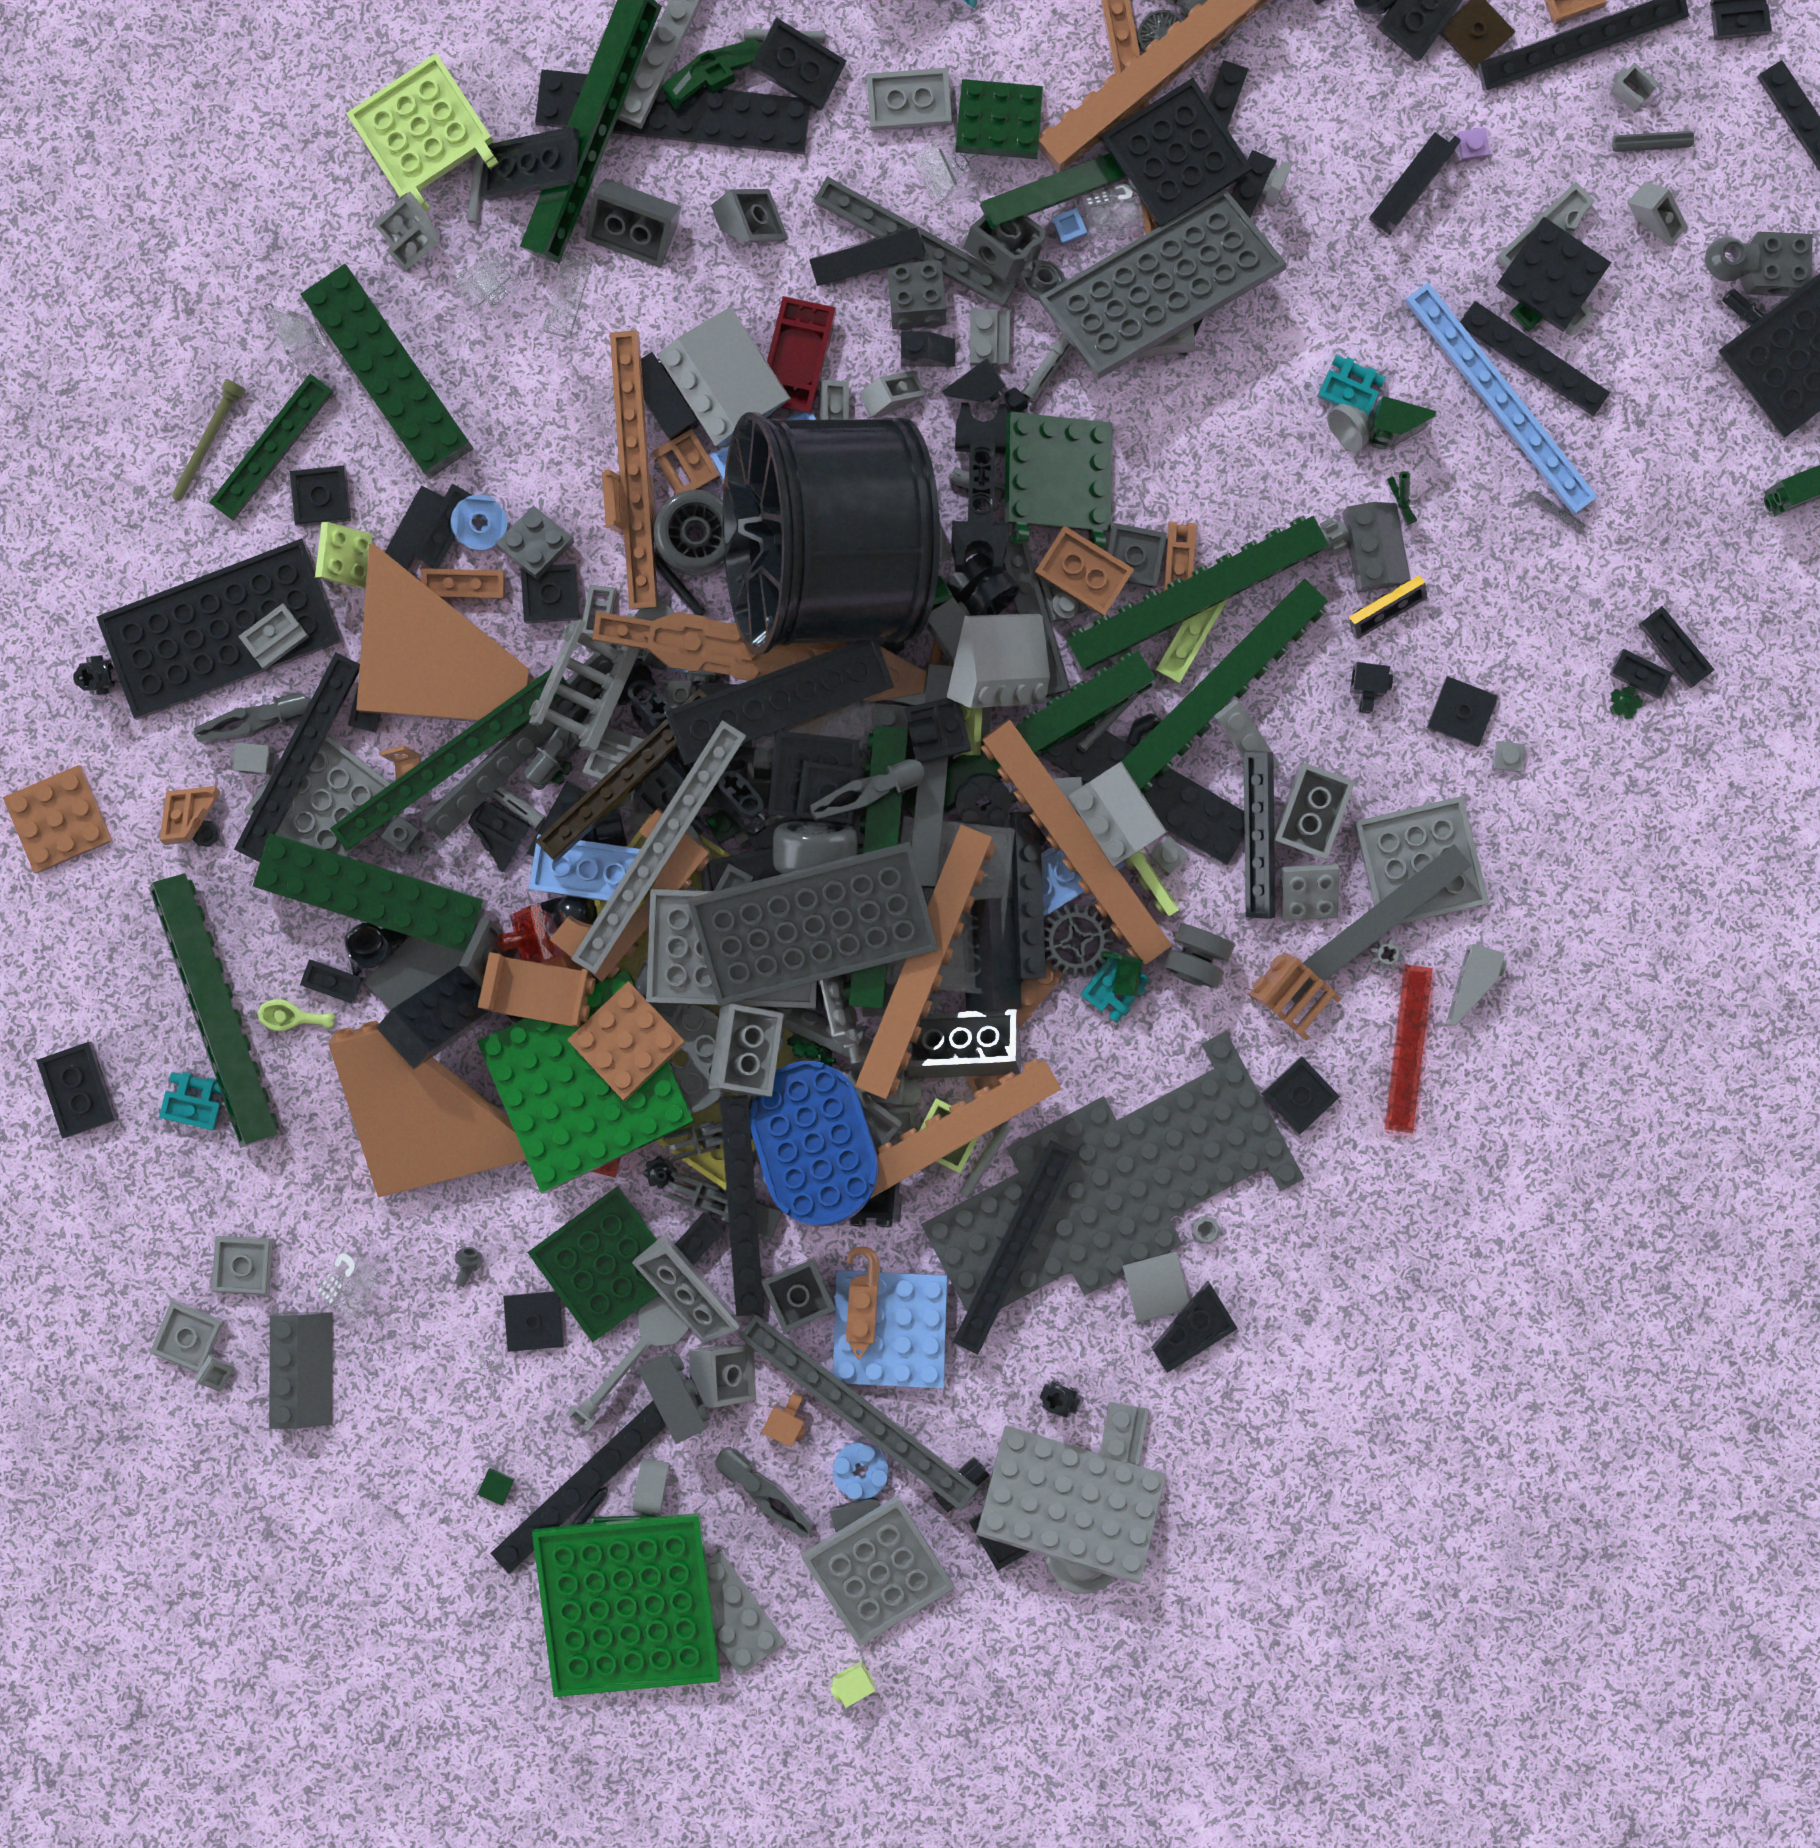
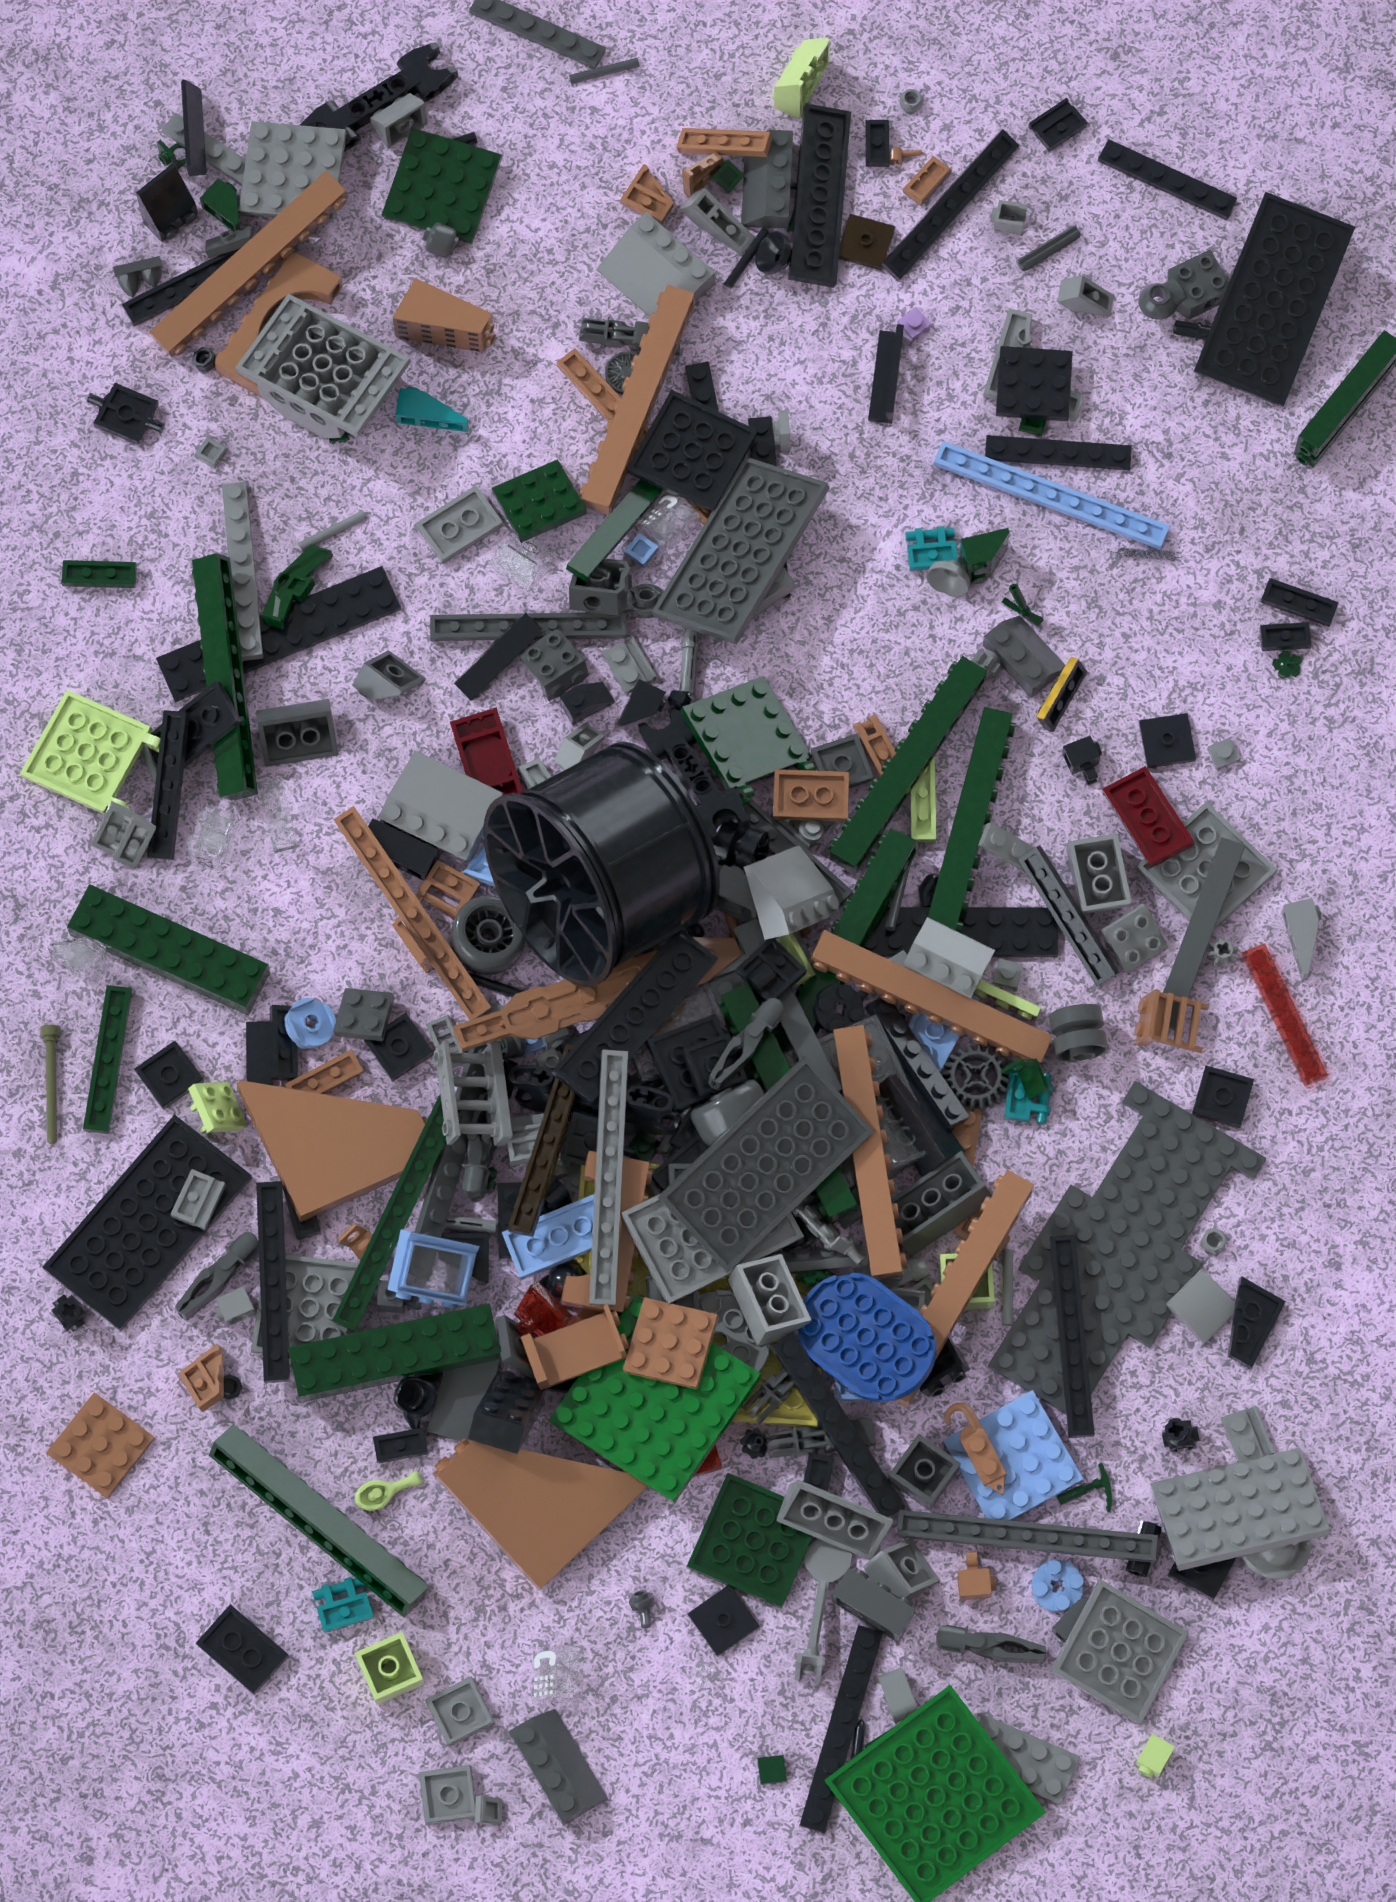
camera: 30 degrees left, 15 degrees down
(197, 1190) = (389, 1668): none -> yellowish green brick
(448, 835) = (432, 1269): none -> window
(477, 205) = (168, 784): none -> black plate
(798, 64) = (358, 544): black plate -> none
(939, 1393) = (1083, 1489): none -> dark green piece
(1396, 780) = (1148, 817): none -> dark red plate

